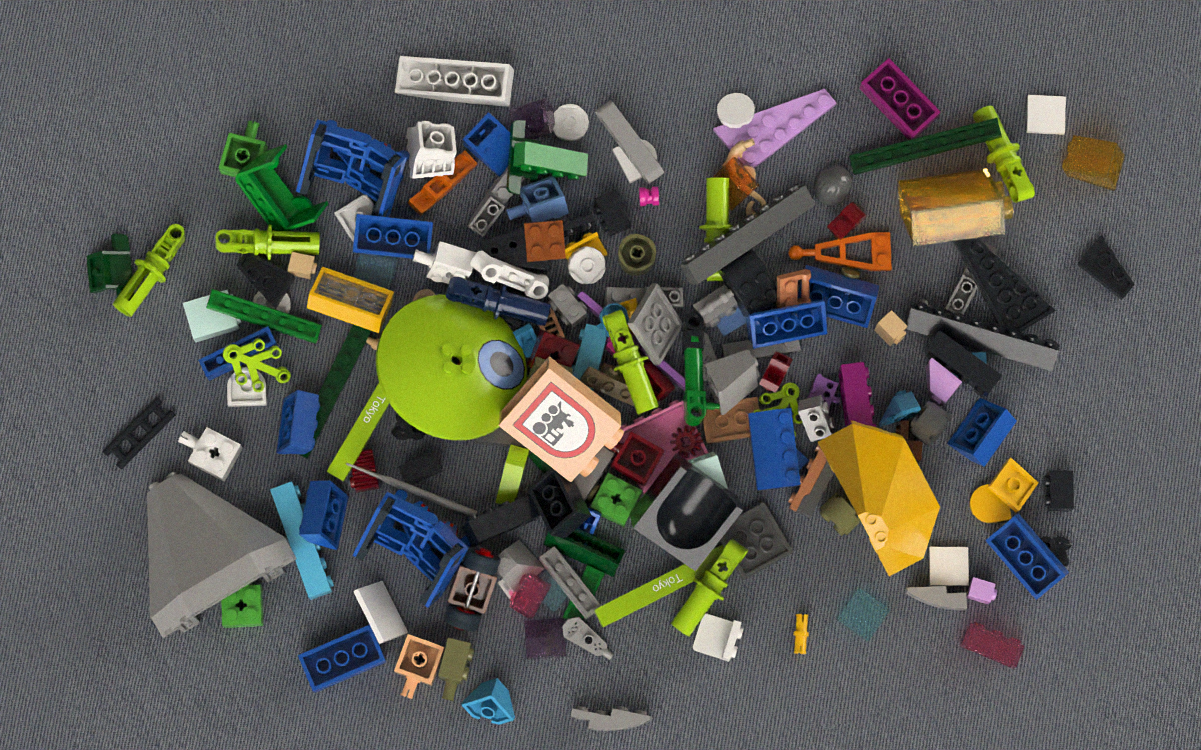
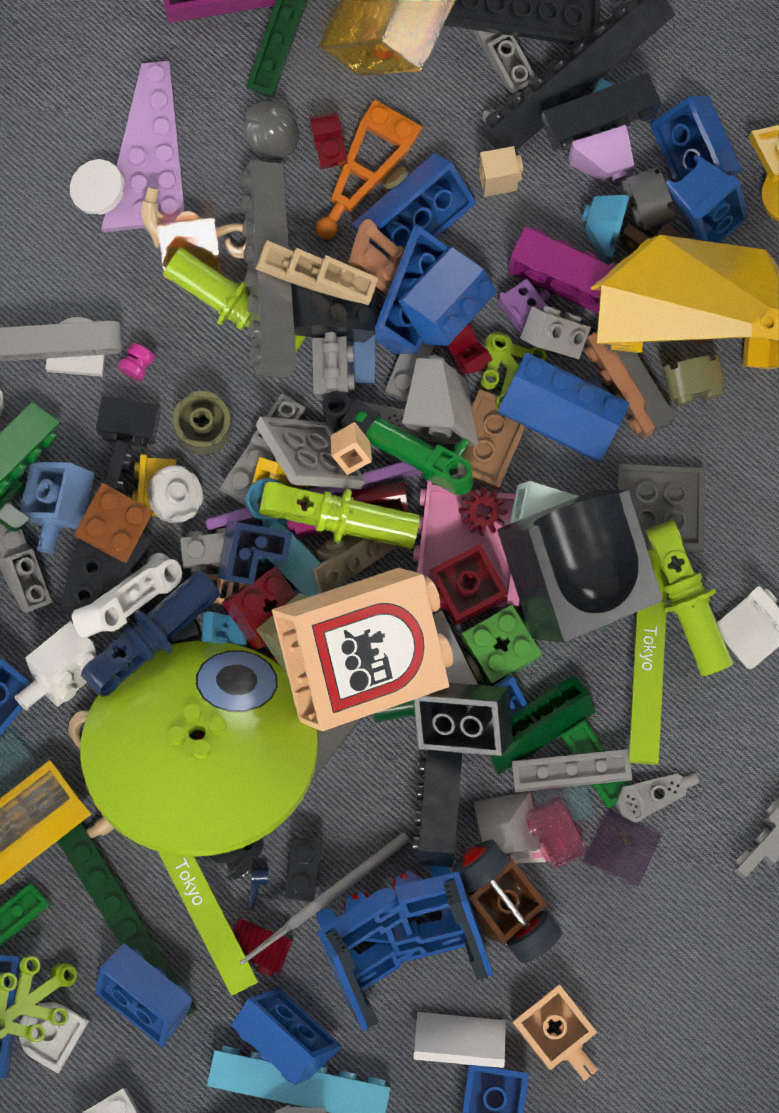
camera: 55 degrees left, 0 degrees up
(401, 446) = (258, 877): none -> dark blue hand
(454, 666) = (591, 987): olive brick -> none
(490, 701) = (662, 967): dark azure slope -> none
(512, 474) = (386, 757): lime slope -> none
(580, 321) = (245, 545): none -> dark blue brick
(671, 344) = (350, 448): none -> light nougat brick
(759, 262) = (317, 274): none -> tan slope
(795, 344) = (447, 297): none -> blue slope
(947, 458) = (709, 201): none -> blue piece

